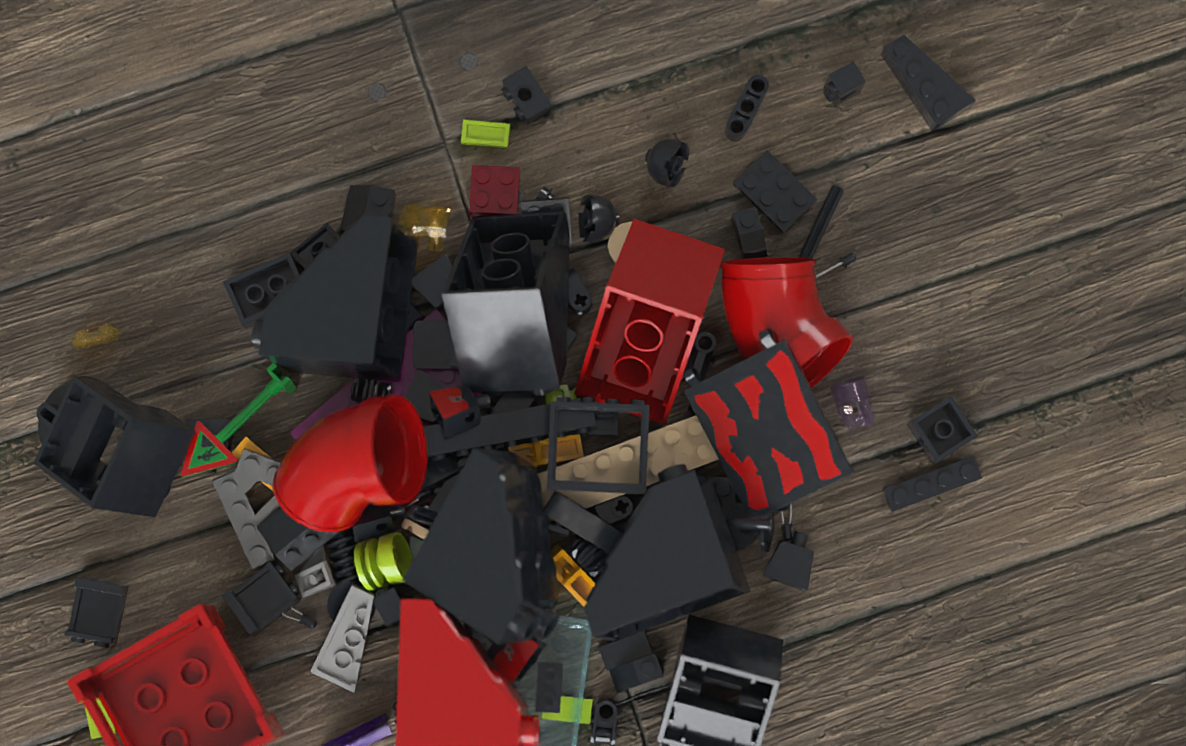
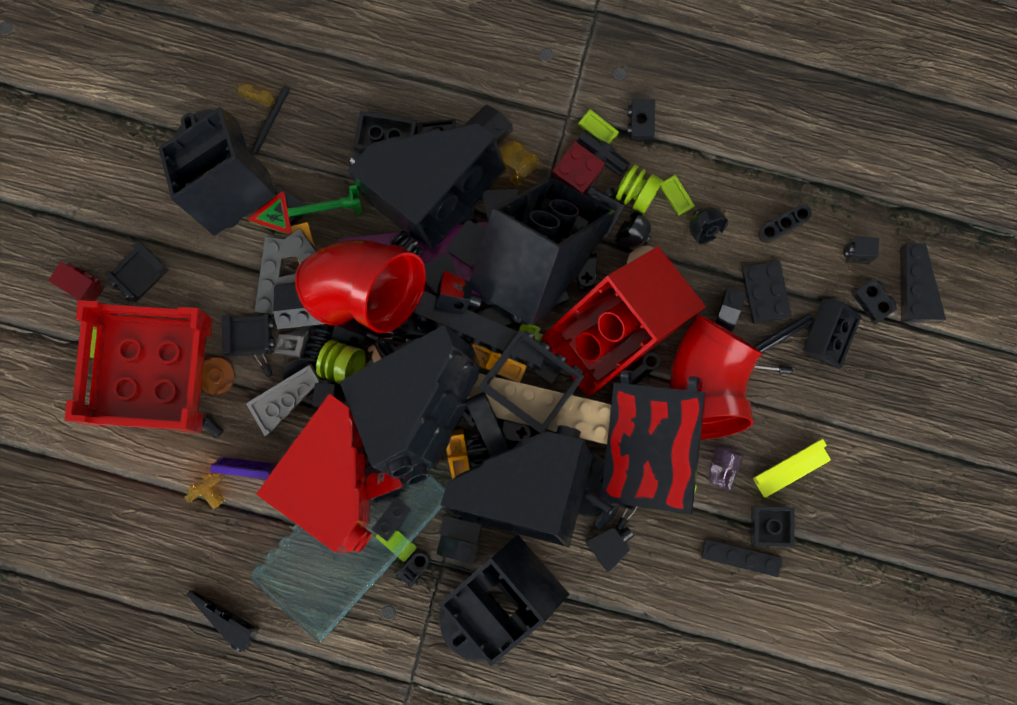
camera: 40 degrees right, 0 degrees up
(37, 667) = (76, 282): none -> dark red brick
(129, 354) = (270, 120): none -> black bar
(260, 662) = (217, 376): none -> dark orange tile
(290, 720) = (211, 426): none -> black pin
(508, 155) = (604, 152): none -> black piece
(572, 171) = (639, 189): none -> lime wheel
(615, 151) = (677, 195): none -> lime tile
(870, 189) = (832, 333): none -> black slope
(889, 134) = (870, 304): none -> black brick
(922, 357) = (792, 468): none -> neon yellow panel

